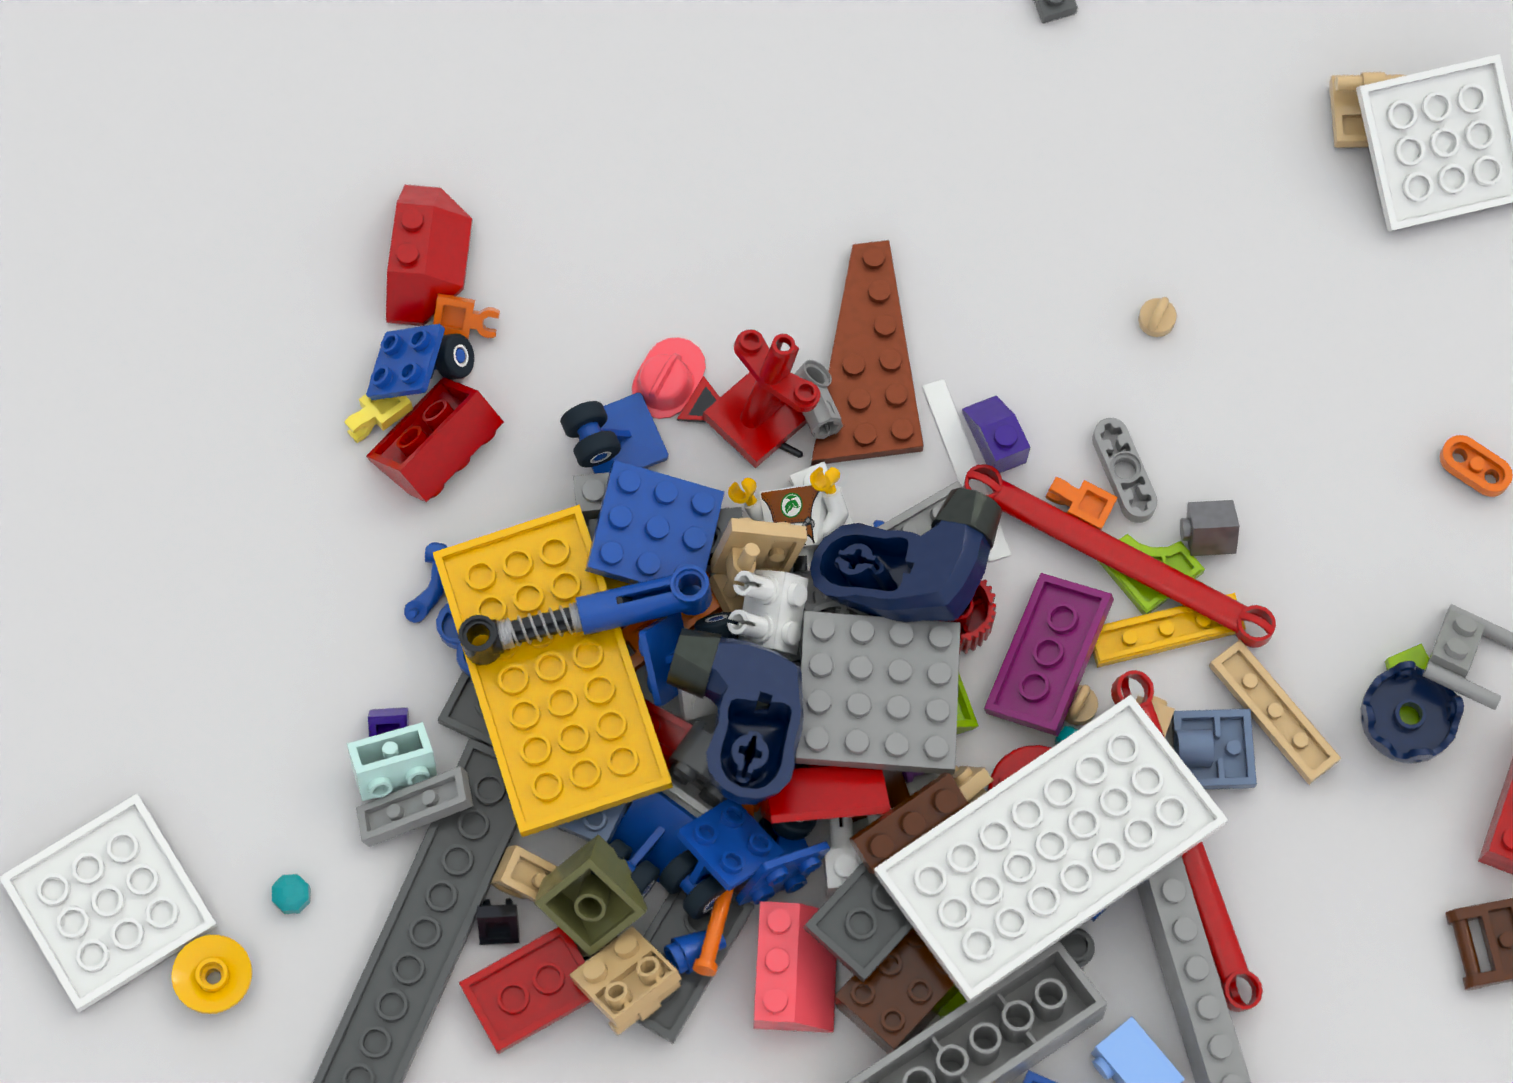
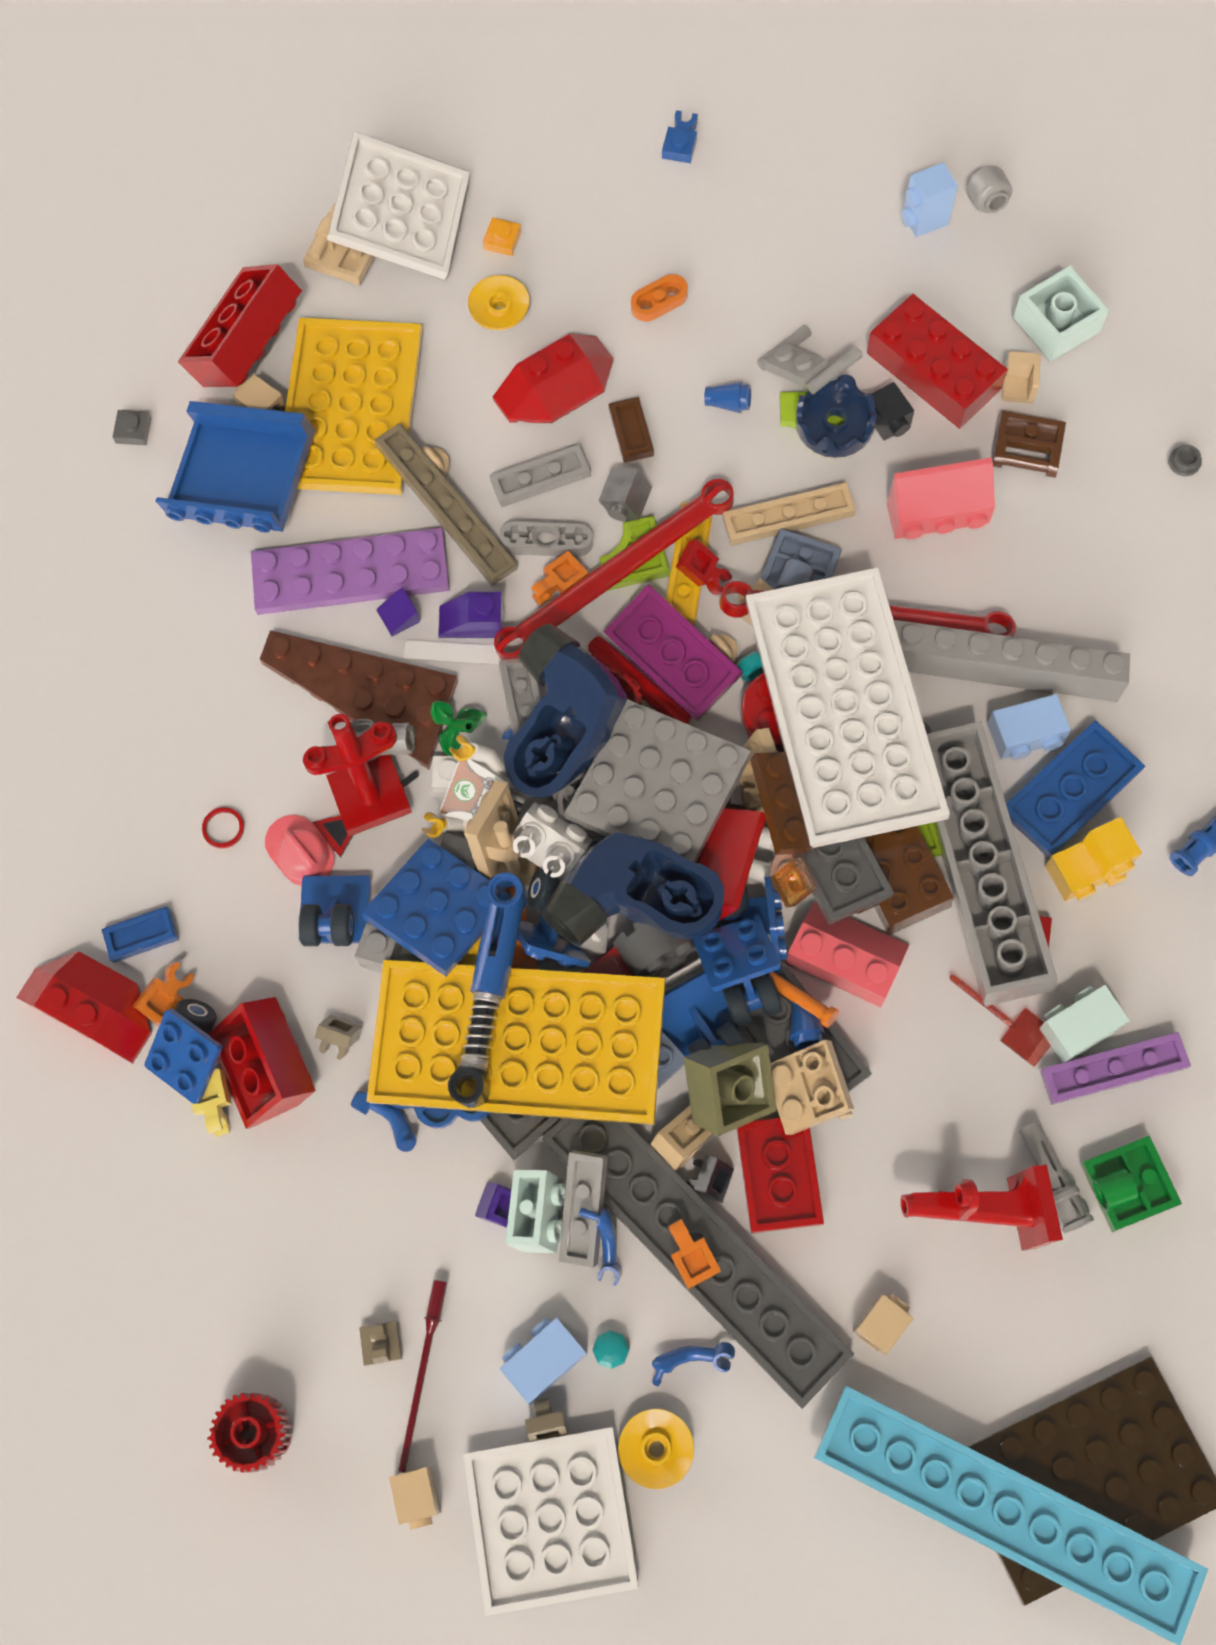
camera: 60 degrees left, 0 degrees up
(81, 767) = (415, 1497): none -> tan brick
(91, 606) = (232, 1422): none -> red brick
(196, 859) = (546, 1423): none -> dark tan tile
(212, 674) = (380, 1343): none -> dark tan tile
(252, 712) = (432, 1320): none -> dark red piece
(254, 831) = (542, 1359): none -> light blue brick
(324, 1001) = (668, 1361): none -> blue piece
(402, 838) = (608, 1239): none -> blue piece
(406, 933) = (693, 1259): none -> orange plate
(493, 498) = (339, 1033): none -> dark tan tile
(515, 267) = (140, 934): none -> blue tile
(654, 275) = (236, 839): none -> red piece
(829, 871) = (793, 882): none -> clear orange plate
(857, 472) = (466, 721): none -> green plant
(968, 357) = (398, 613): none -> dark purple slope
(994, 289) = (349, 571): none -> medium lavender plate
(1002, 634) = (650, 691): none -> red axle
(1052, 126) = (239, 467): none -> blue panel
(1112, 349) = (446, 504): none -> dark tan tile
(1140, 110) = (258, 394): none -> tan brick
(1161, 640) = (700, 567): none -> red plate
(1183, 202) = (353, 388): none -> yellow plate
(1194, 431) = (540, 475): none -> light grey plate
(1214, 50) = (240, 326): none -> red brick
(1298, 504) = (631, 430): none -> reddish brown tile
(1319, 401) = (555, 380): none -> red wedge
(1365, 868) = (942, 498): none -> coral slope
(1384, 284) = (494, 293): none -> yellow dish
(1388, 592) = (730, 397): none -> blue cone
(1454, 772) = (893, 412): none -> black brick
(1471, 267) = (502, 236): none -> light orange plate

